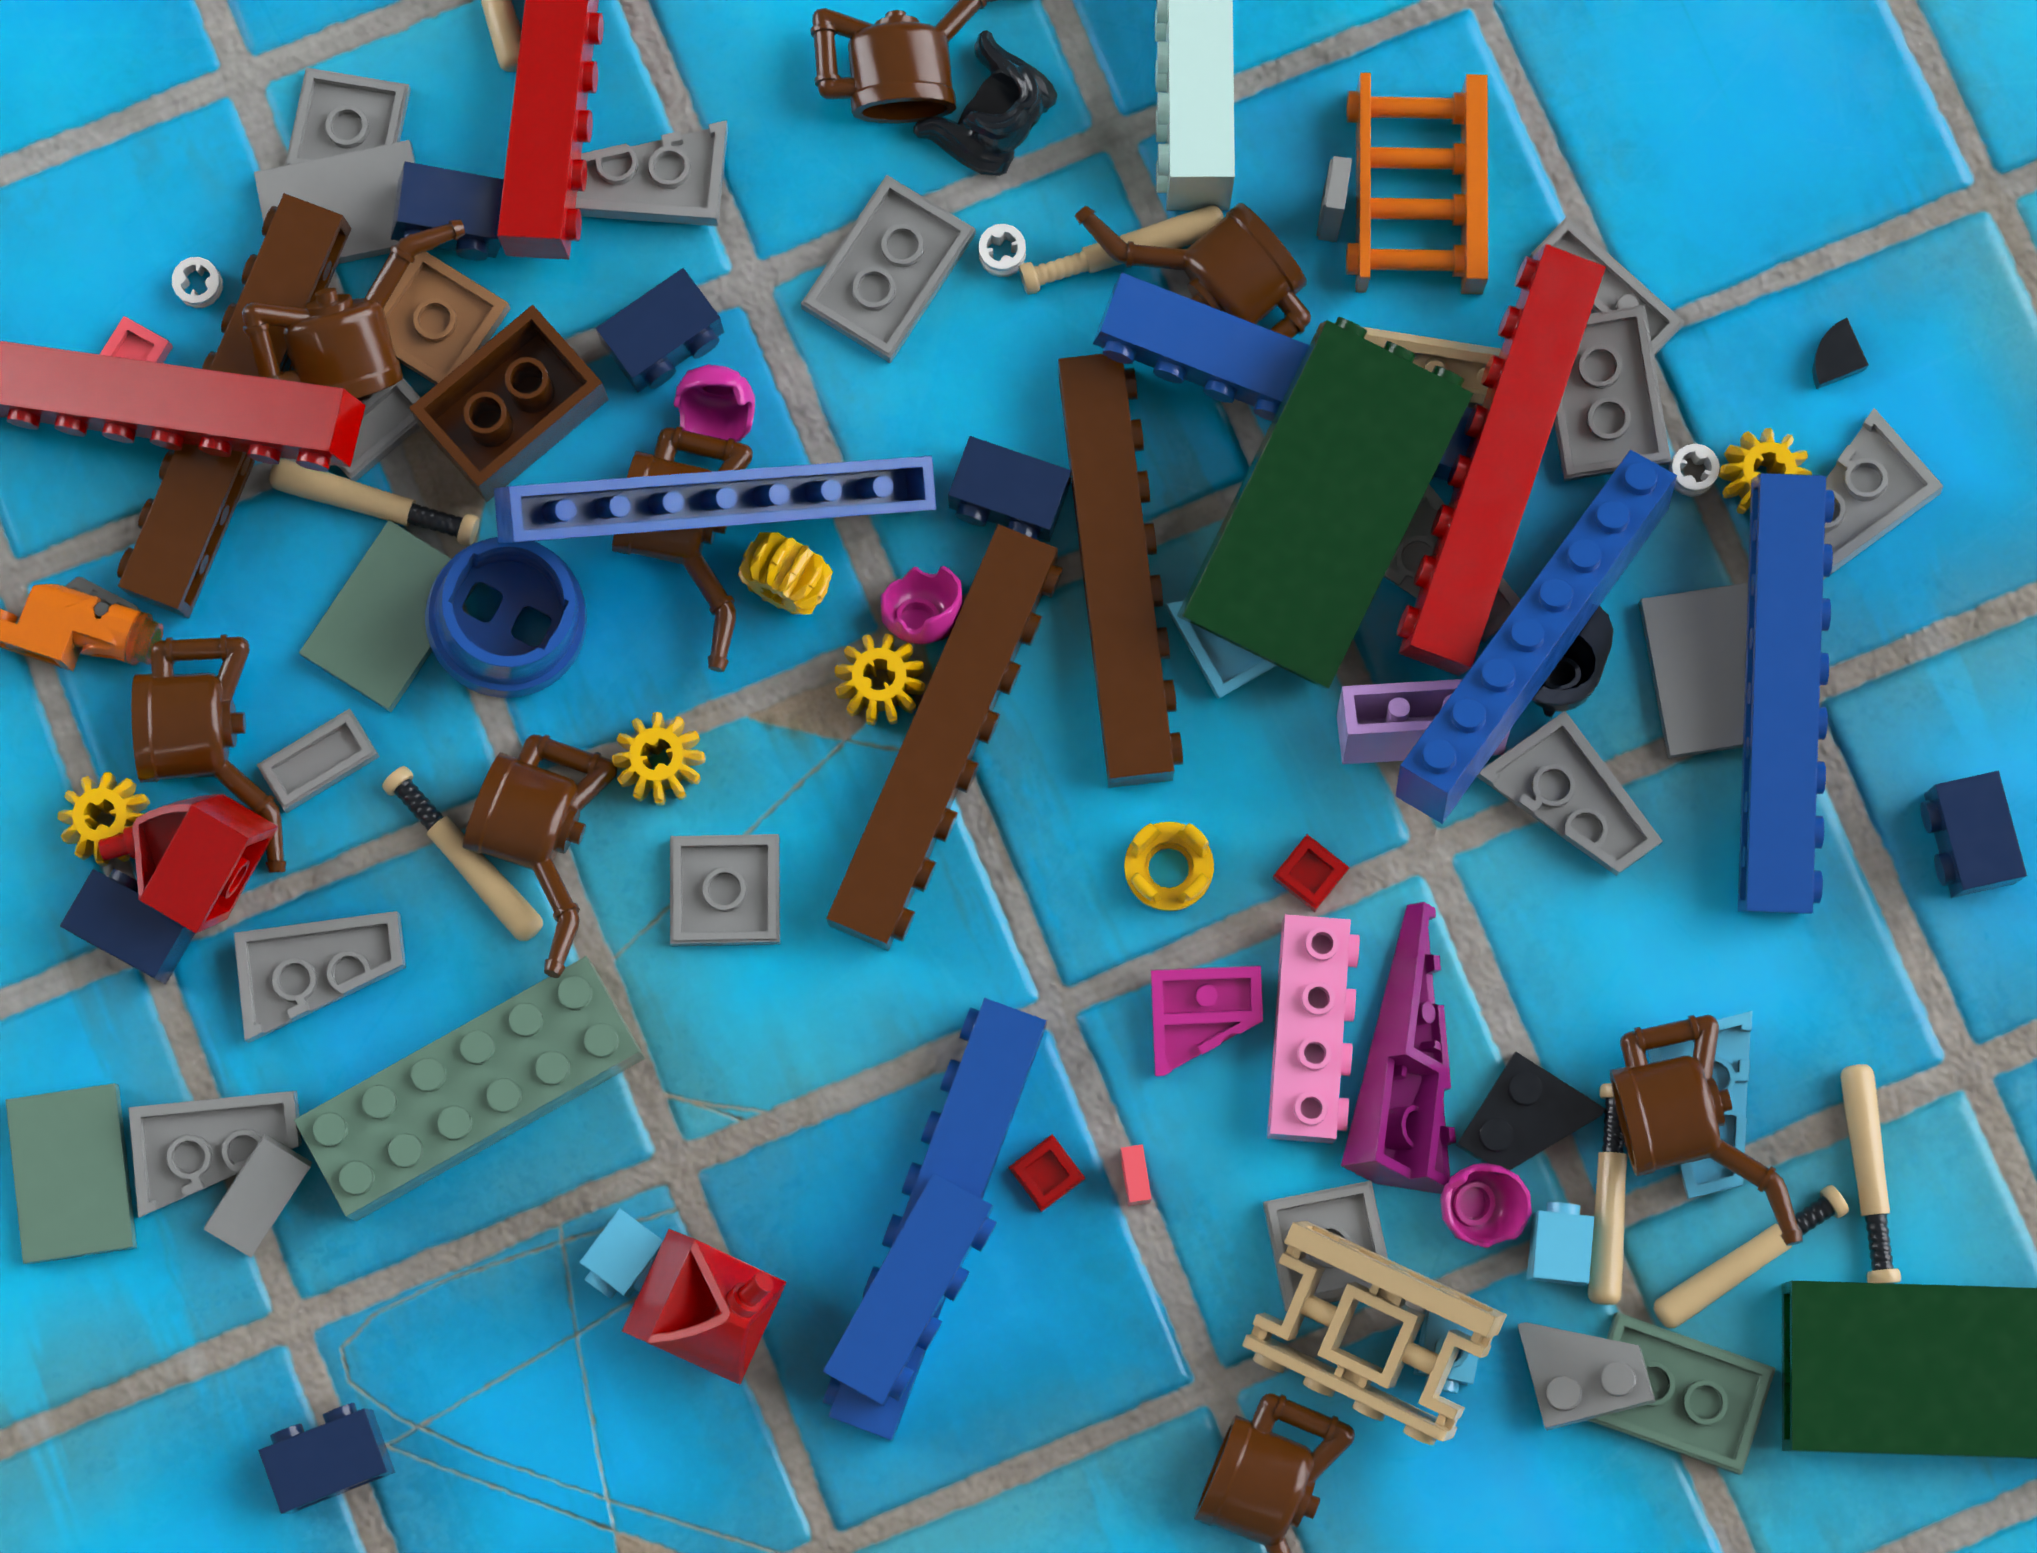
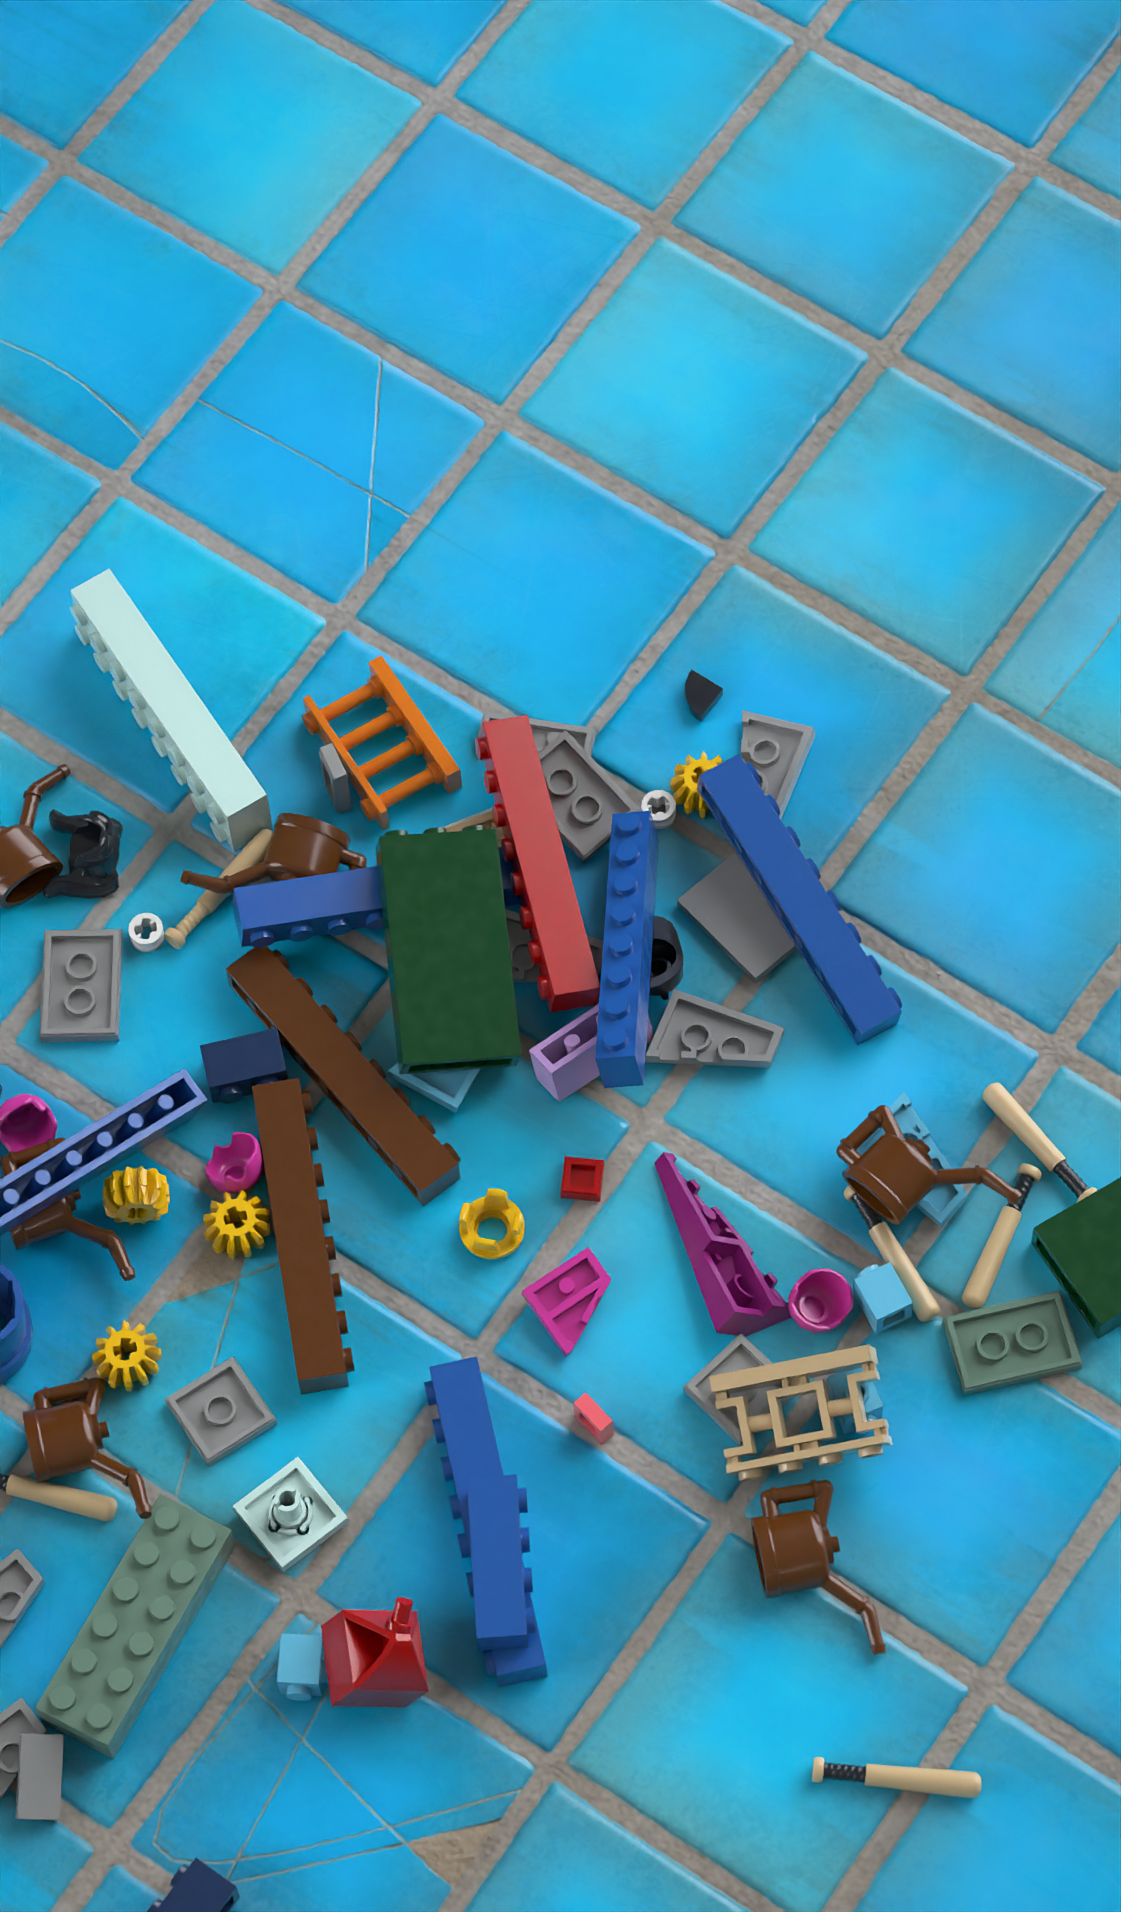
camera: 30 degrees left, 15 degrees down
(693, 1040) = (281, 1503): none -> light aqua plate
(1046, 1173) = (537, 1454): red tile -> none
(1310, 1029) = (643, 1266): bright pink brick -> none
(1525, 1115) = (809, 1237): black wing -> none
(1583, 1375) = (947, 1364): light grey wing -> none
(1973, 834) = (967, 913): dark blue brick -> none

